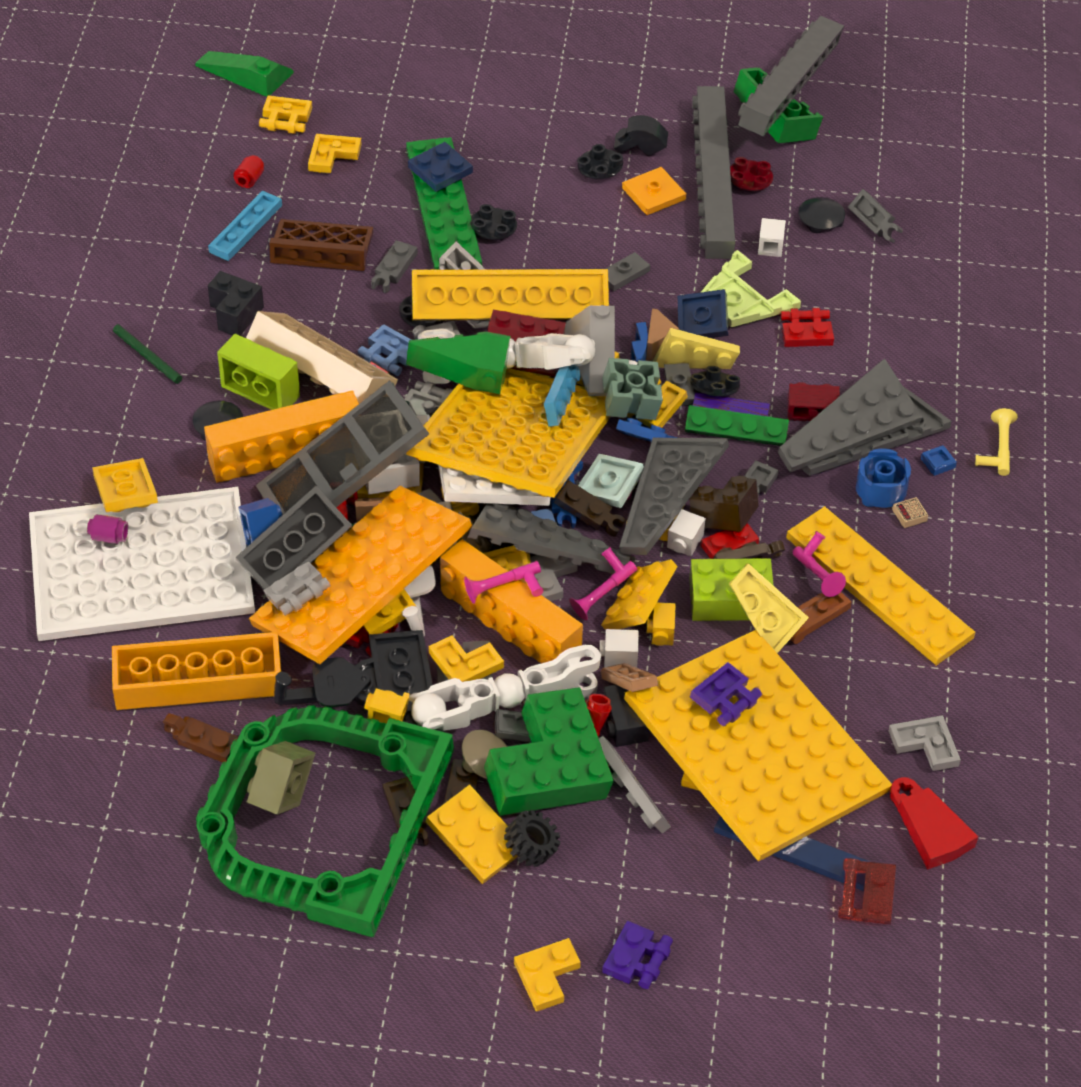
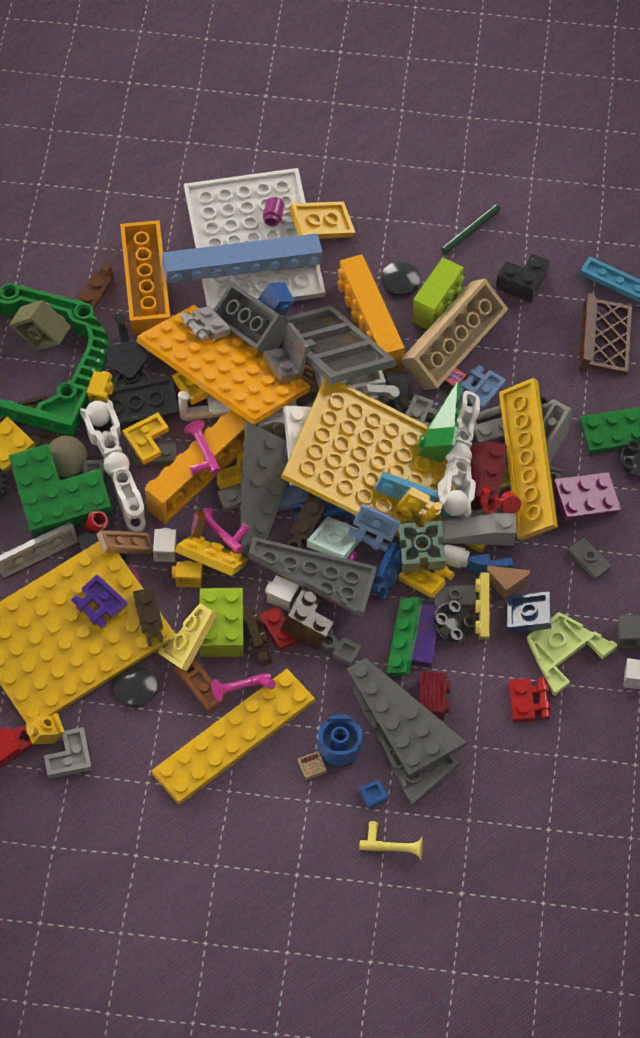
camera: 90 degrees right, 10 degrees up
(190, 557) = (241, 258): none -> medium blue brick
(363, 491) = (290, 360): none -> flat silver bracket
(394, 265) = (583, 388): dark grey plate -> none
(545, 255) = (586, 496): none -> plate
(571, 313) = (507, 502): none -> red leg
(583, 384) = (417, 503): none -> yellow plate
(597, 606) = (198, 524): none -> reddish brown tile
(605, 431) = (376, 523): none -> medium blue plate
(737, 647) = (148, 613): none -> dark brown plate
(823, 678) = (135, 686): none -> black dish
(898, 762) = (44, 729): none -> yellow brick

